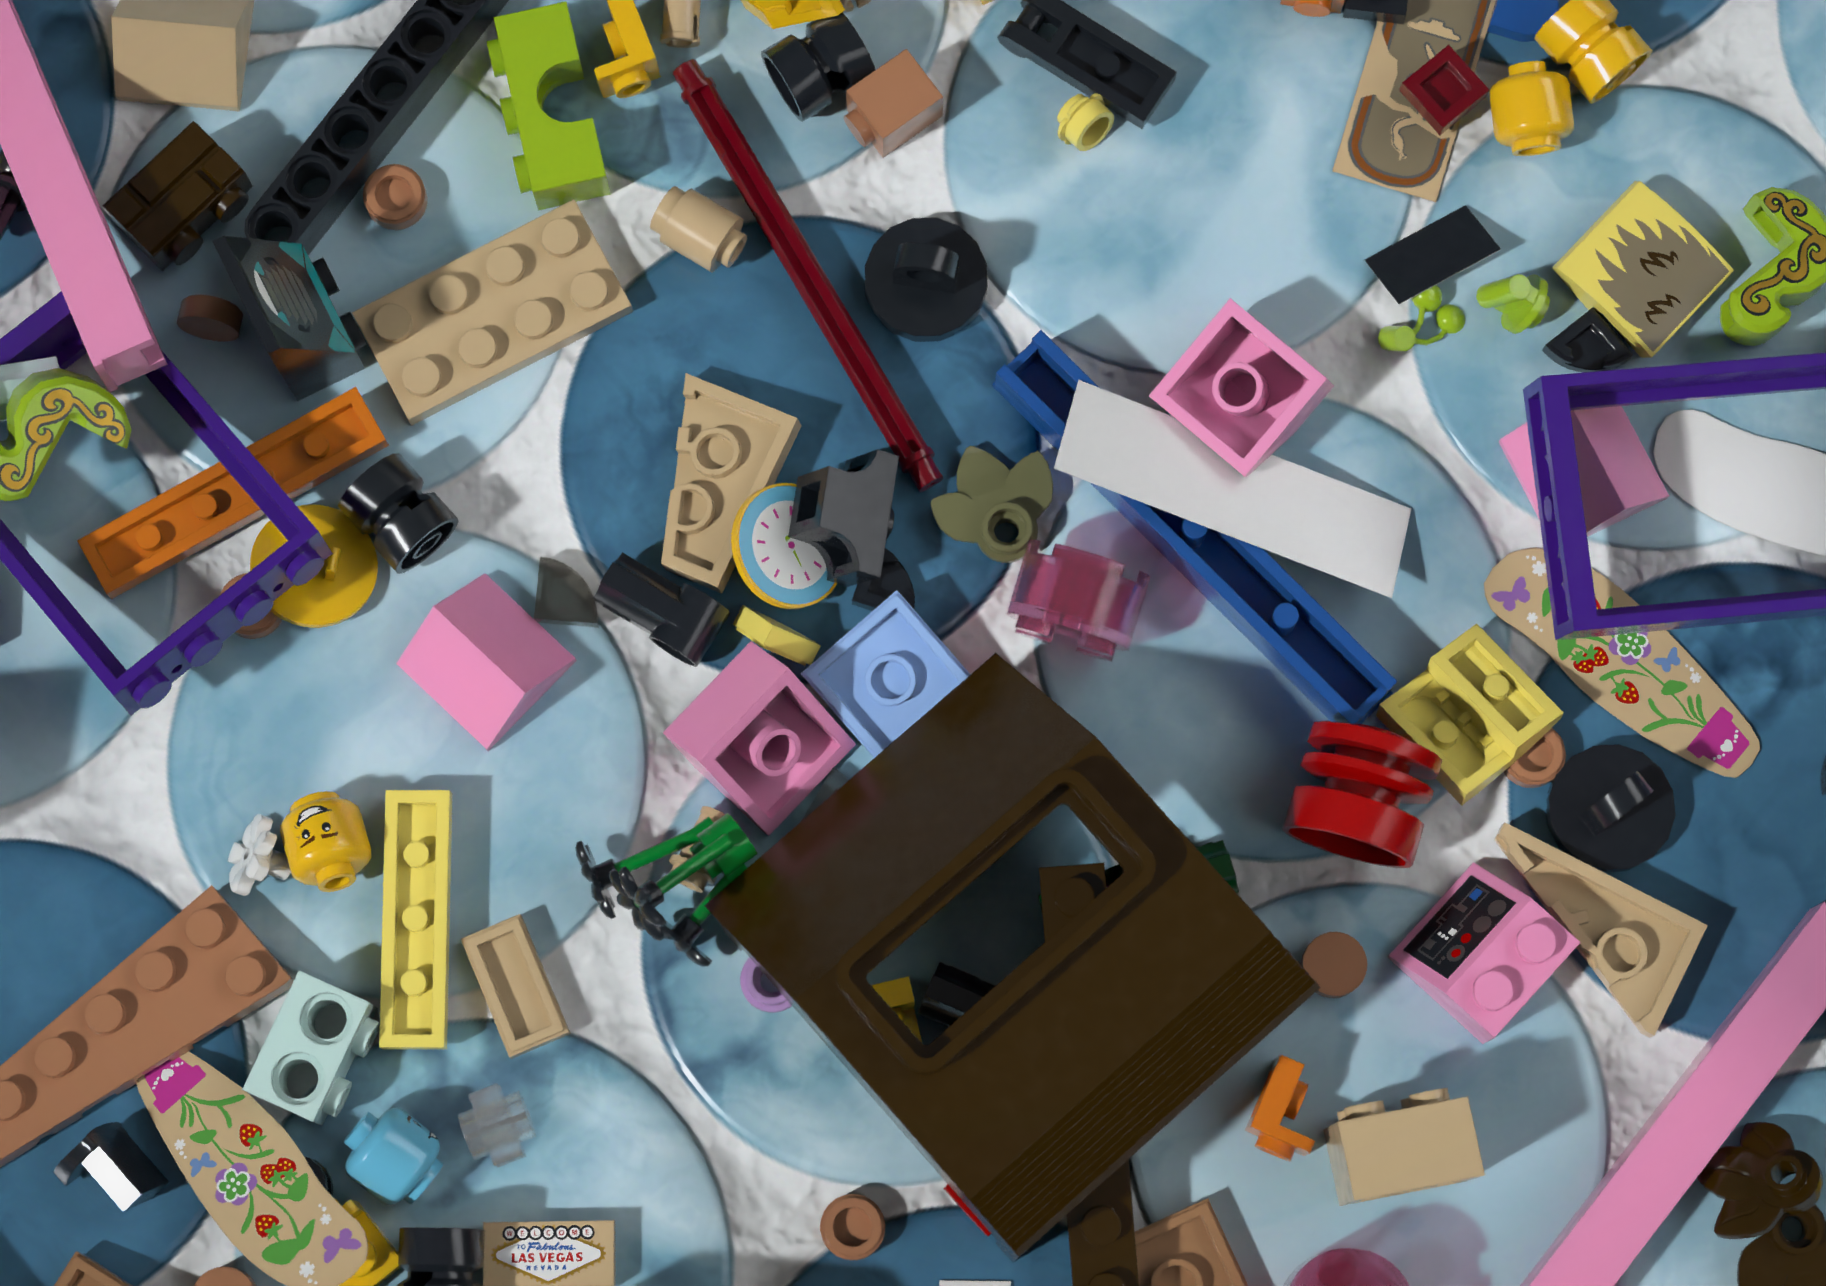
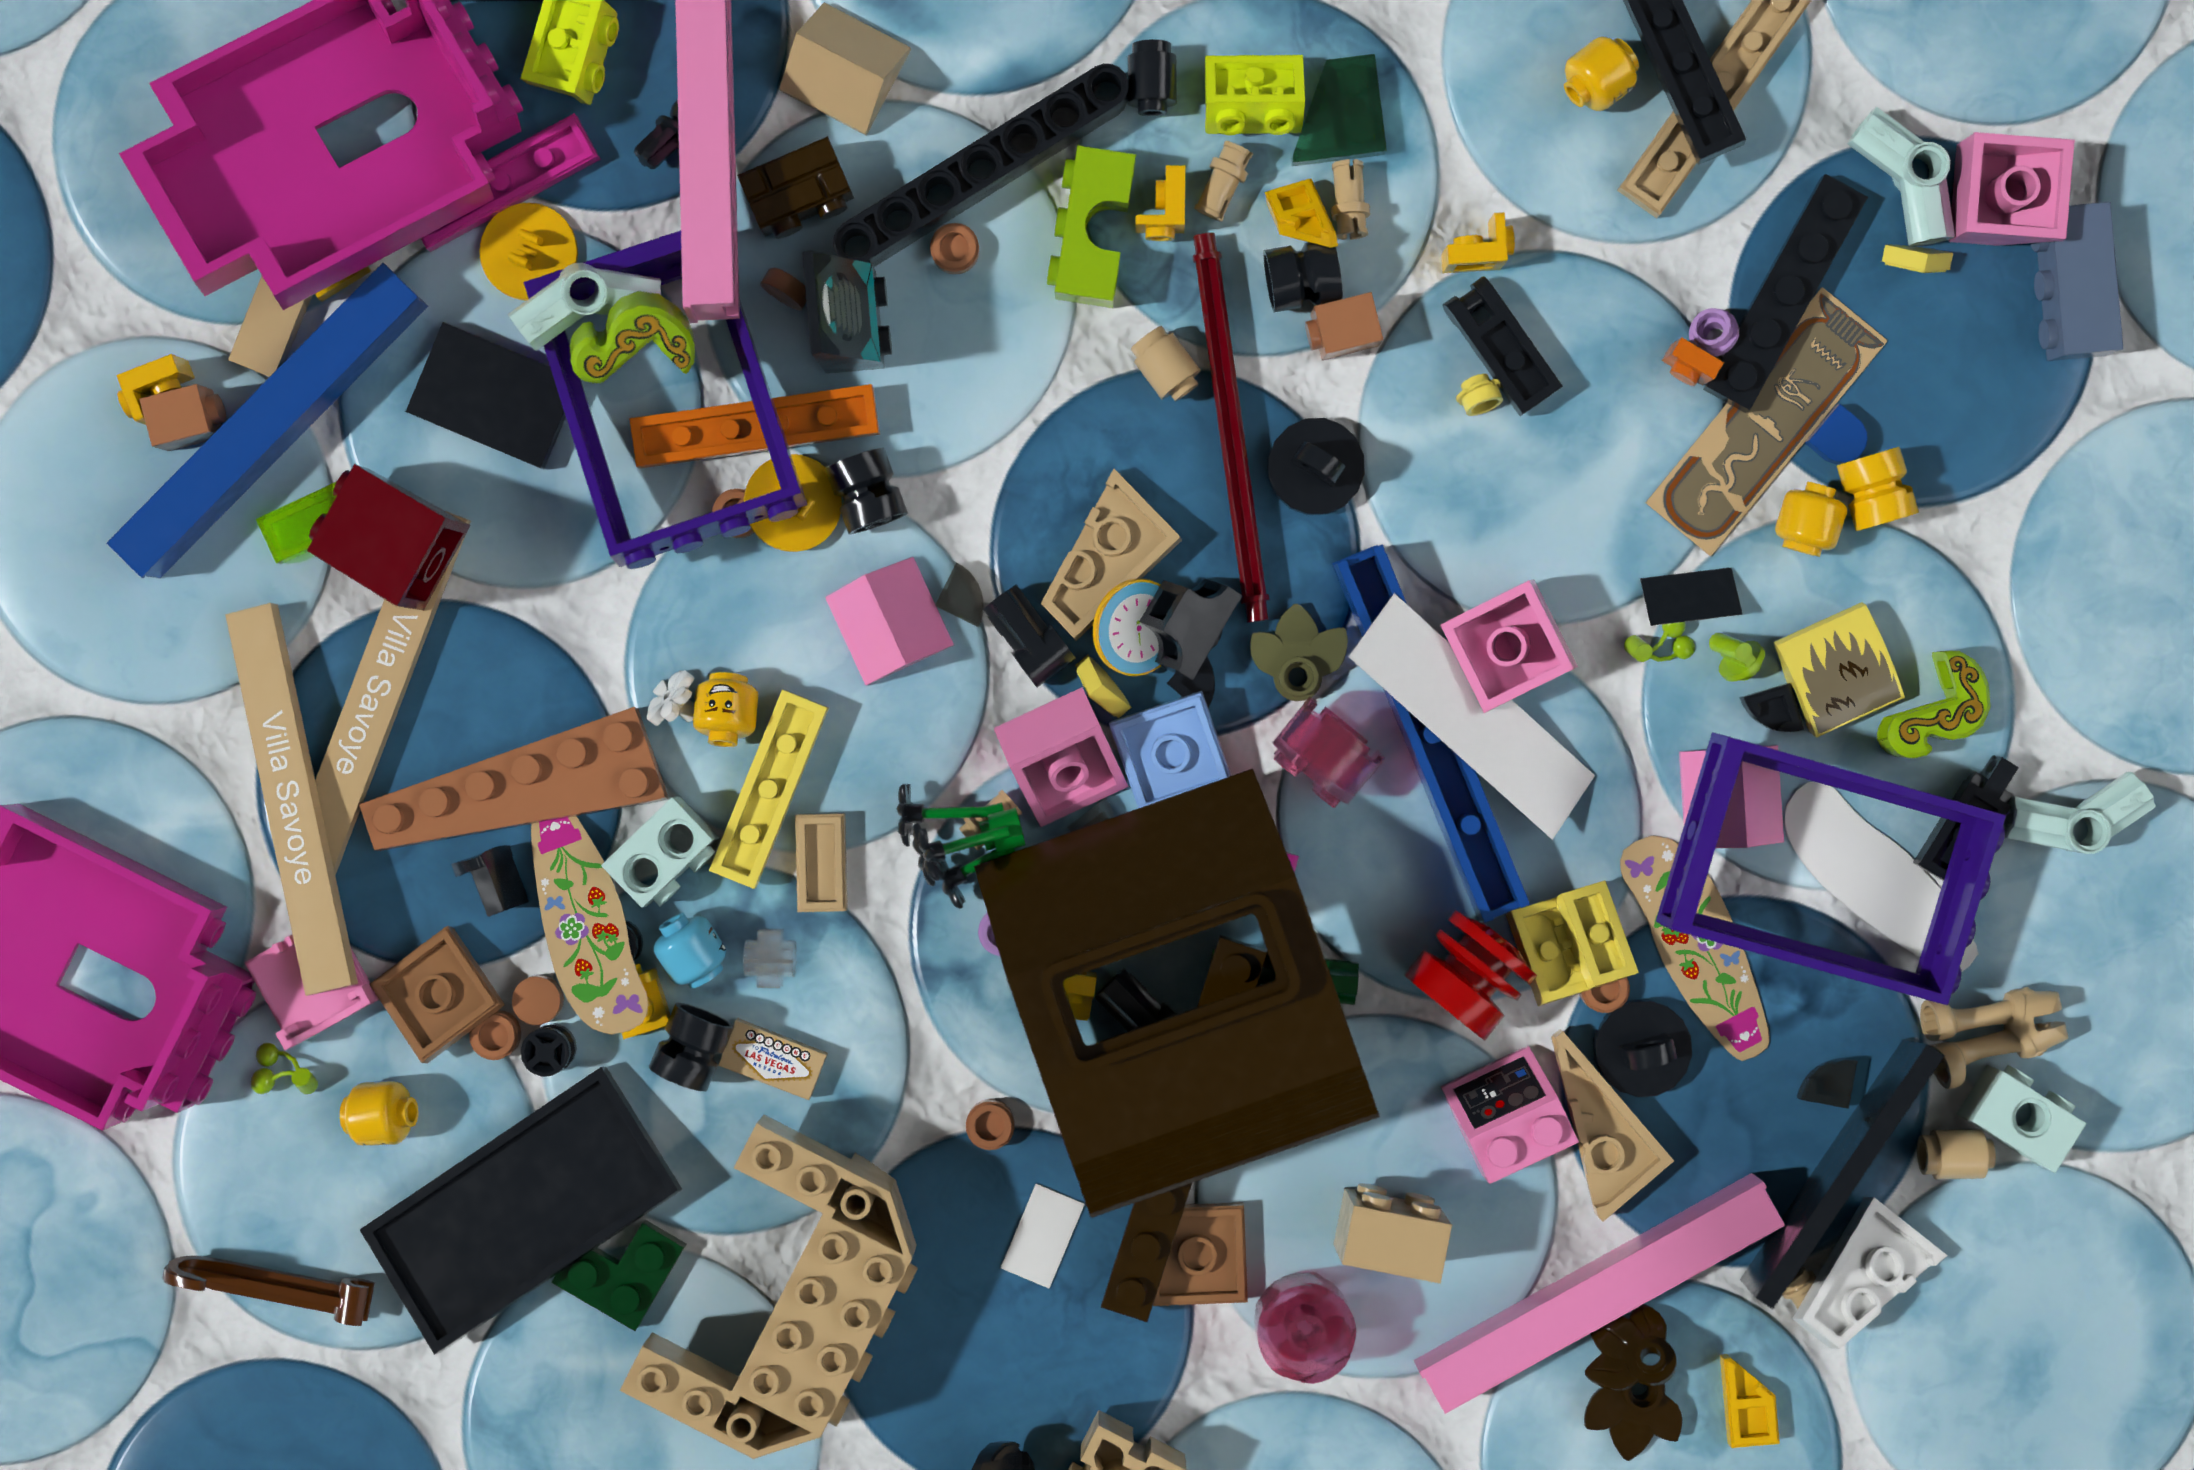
camera: 25 degrees right, 10 degrees up
(492, 312) = (992, 364): tan plate -> none
(1280, 1097) = (1324, 1158): orange bracket -> none
(1335, 963) = (1400, 1079): nougat tile -> none
(1444, 90) = (1753, 478): dark red plate -> none

